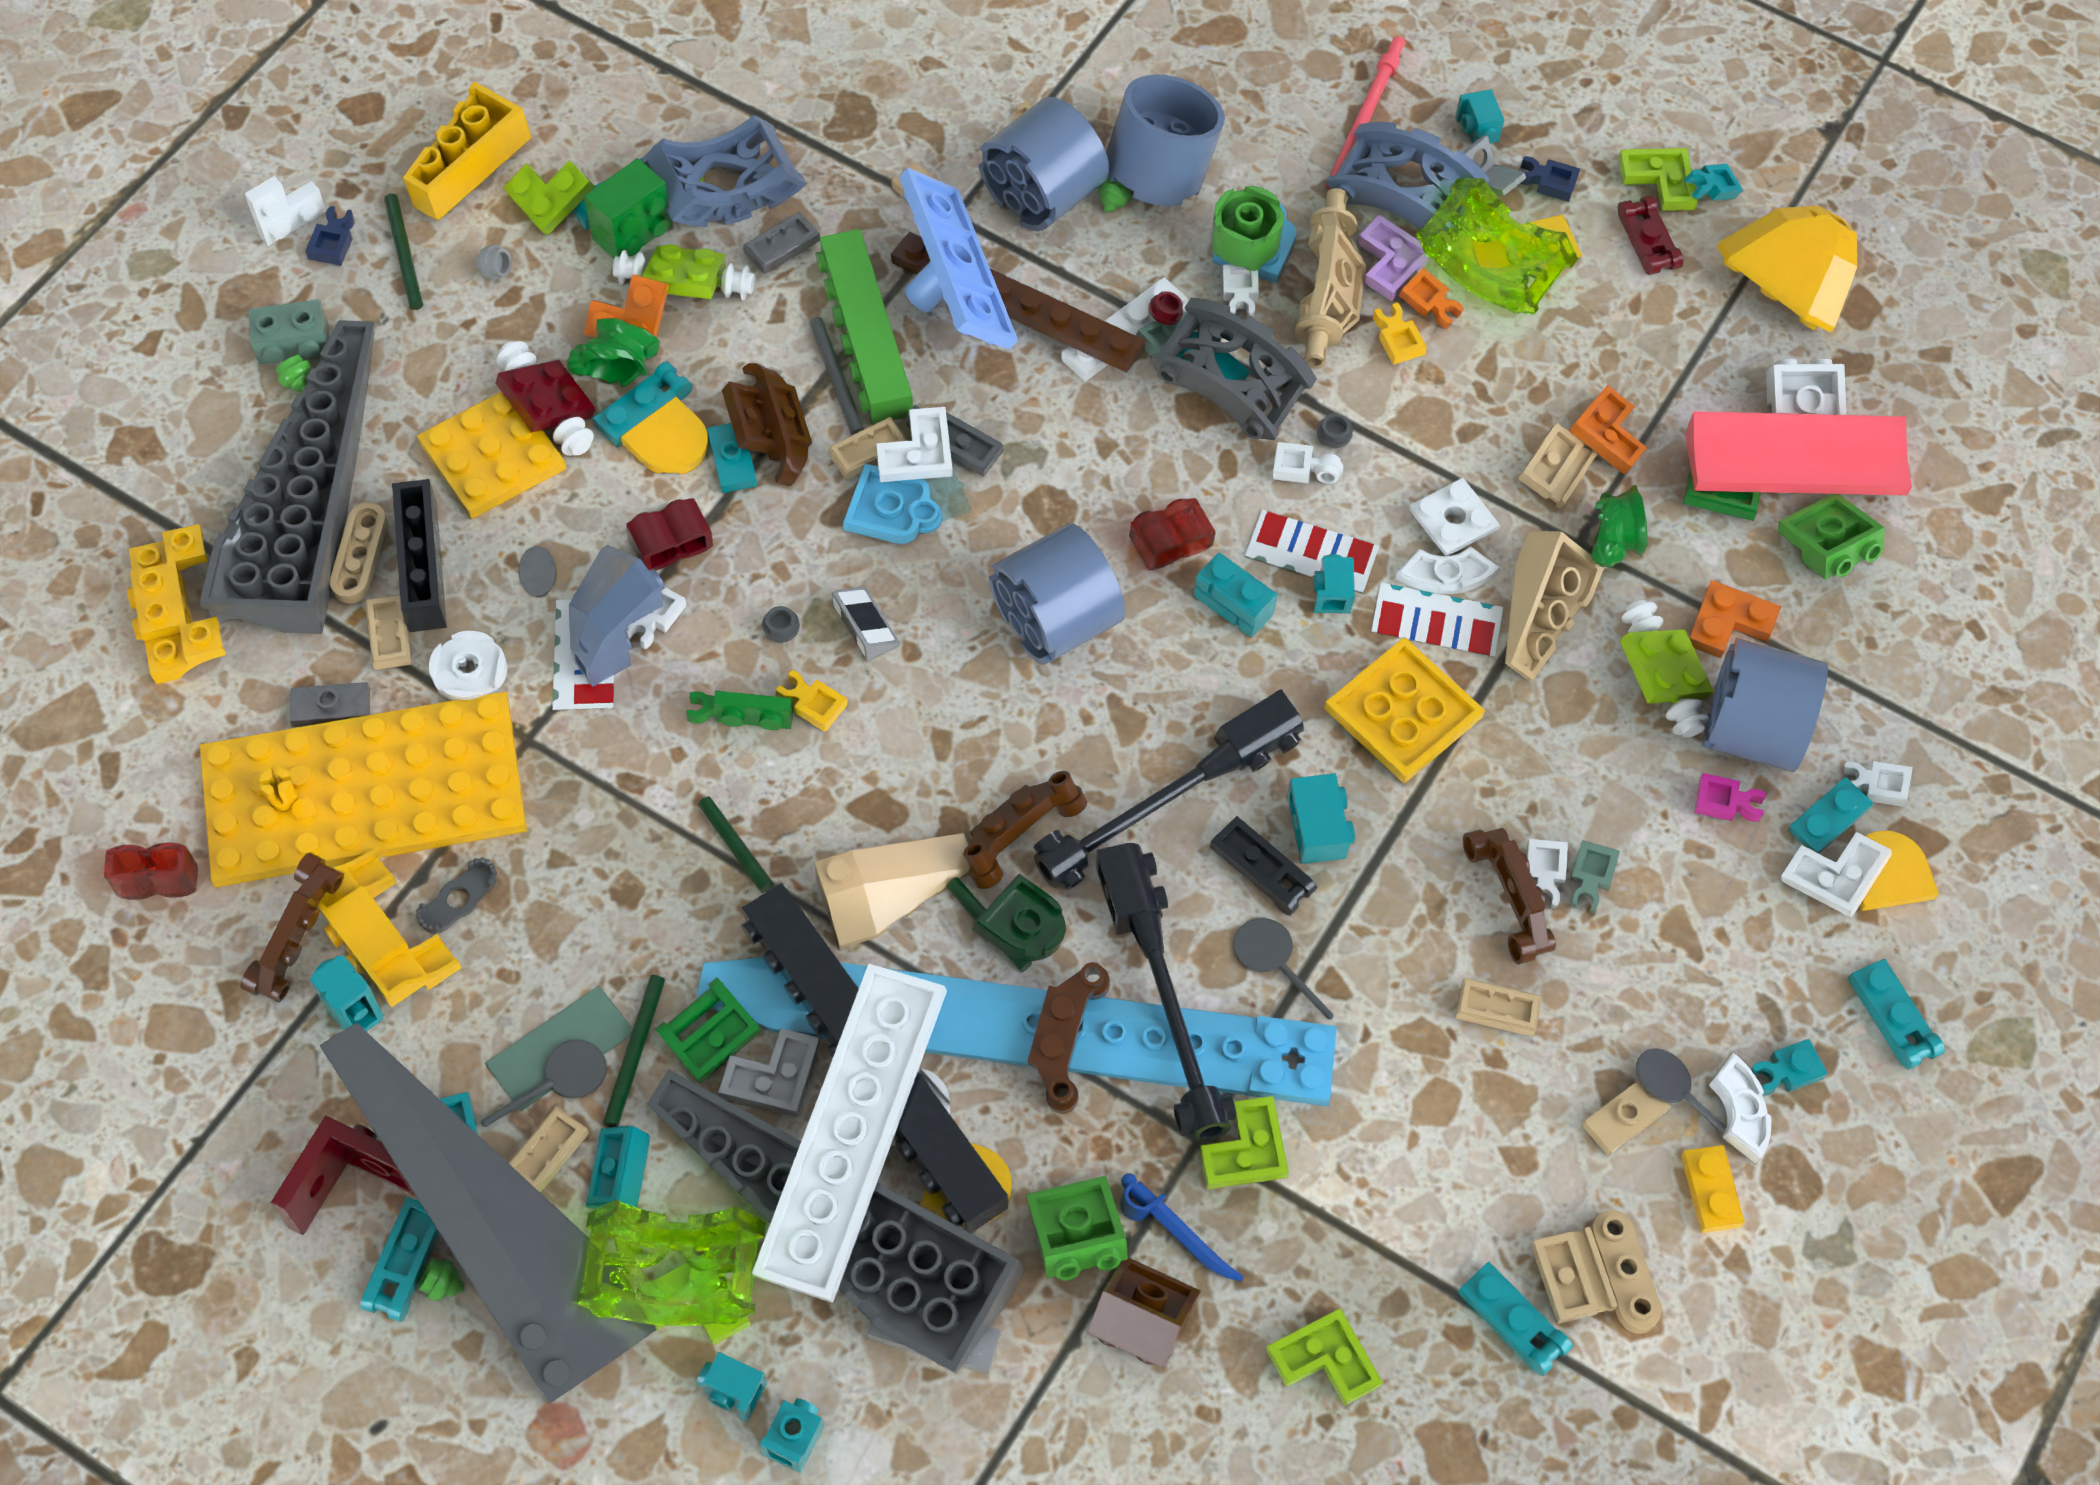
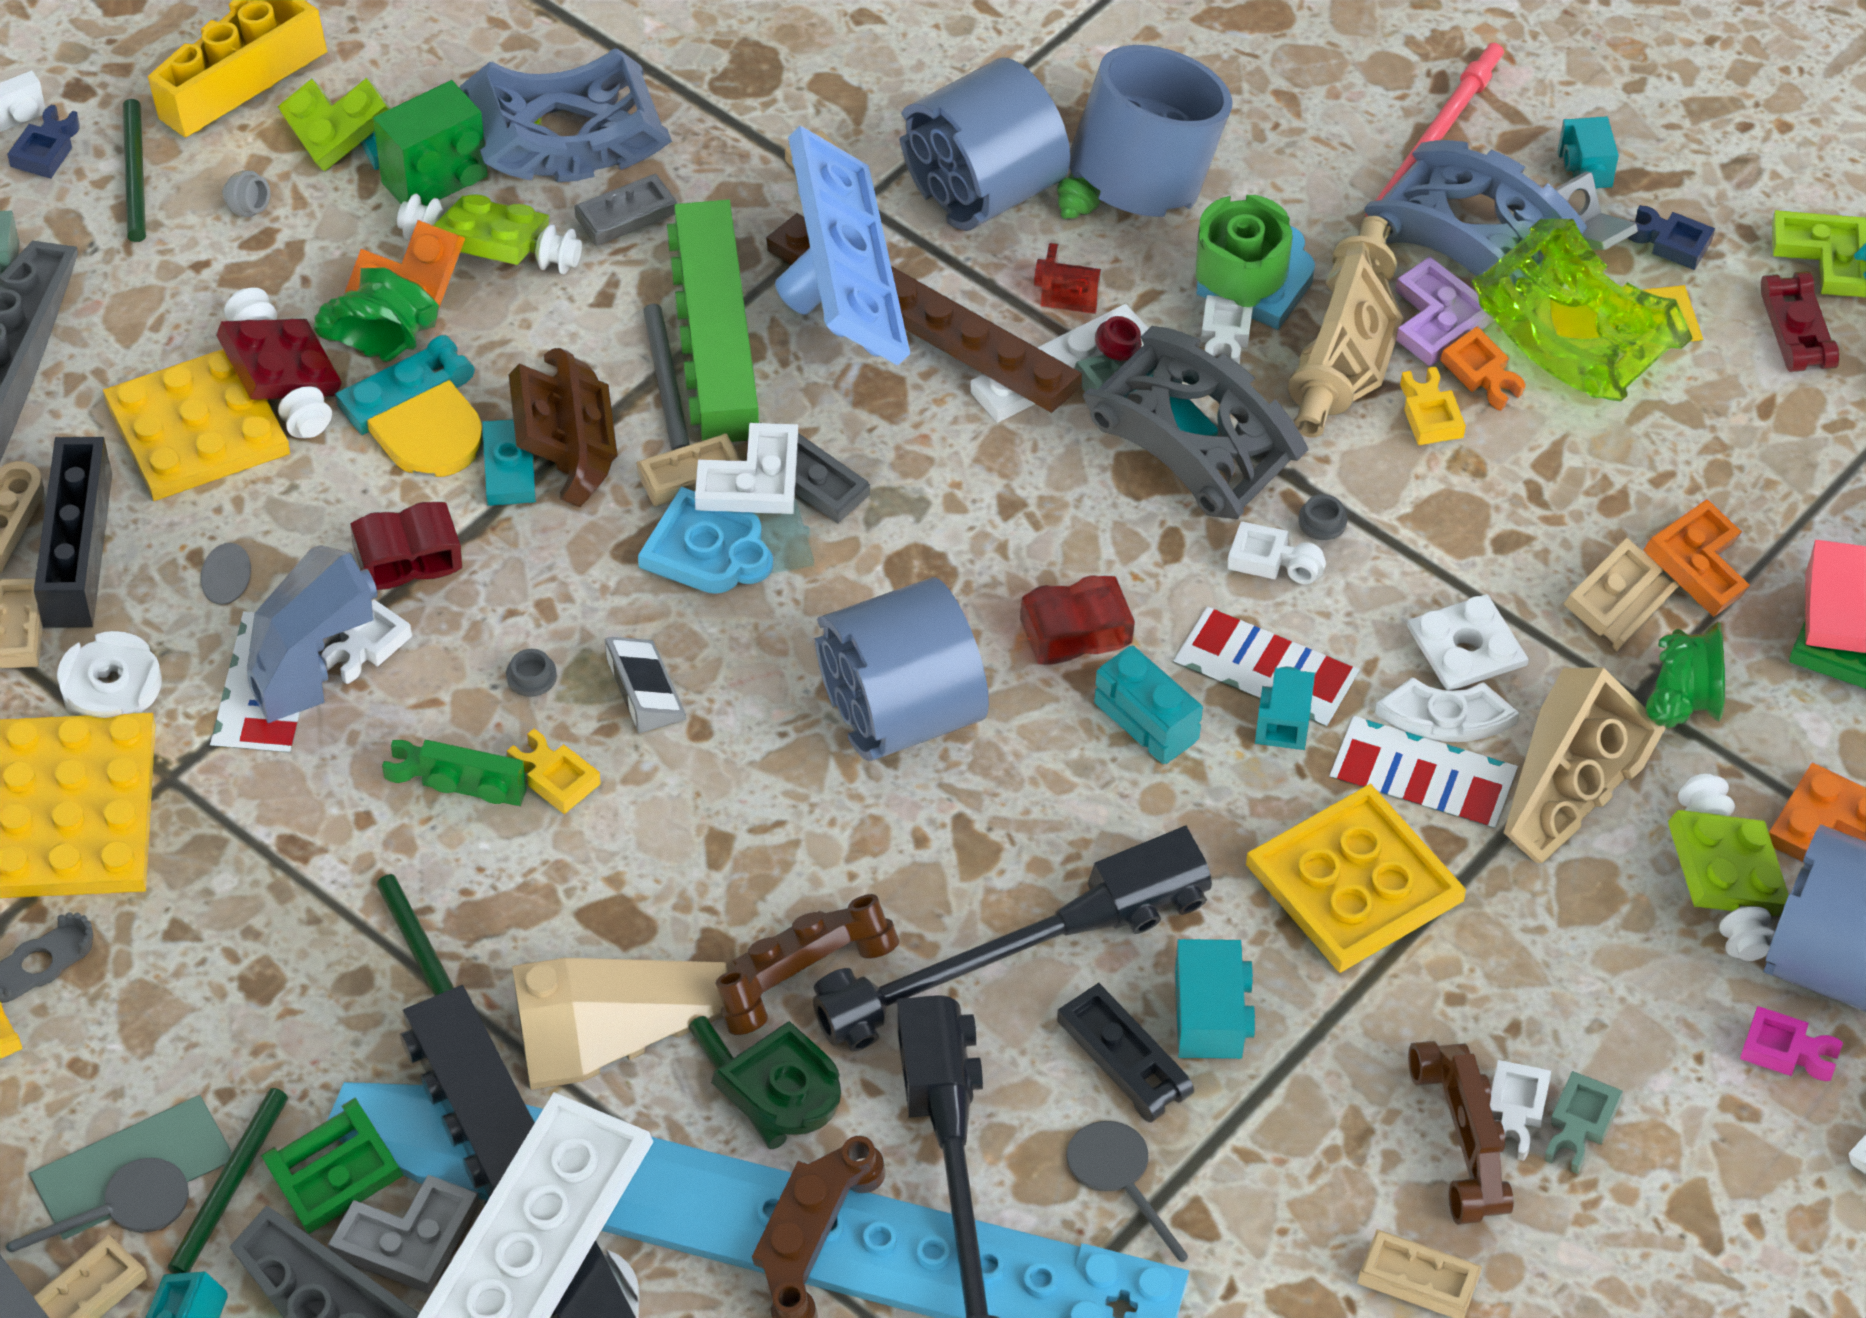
camera: 10 degrees right, 10 degrees down
(1119, 268) = (1066, 284): none -> clear red bracket

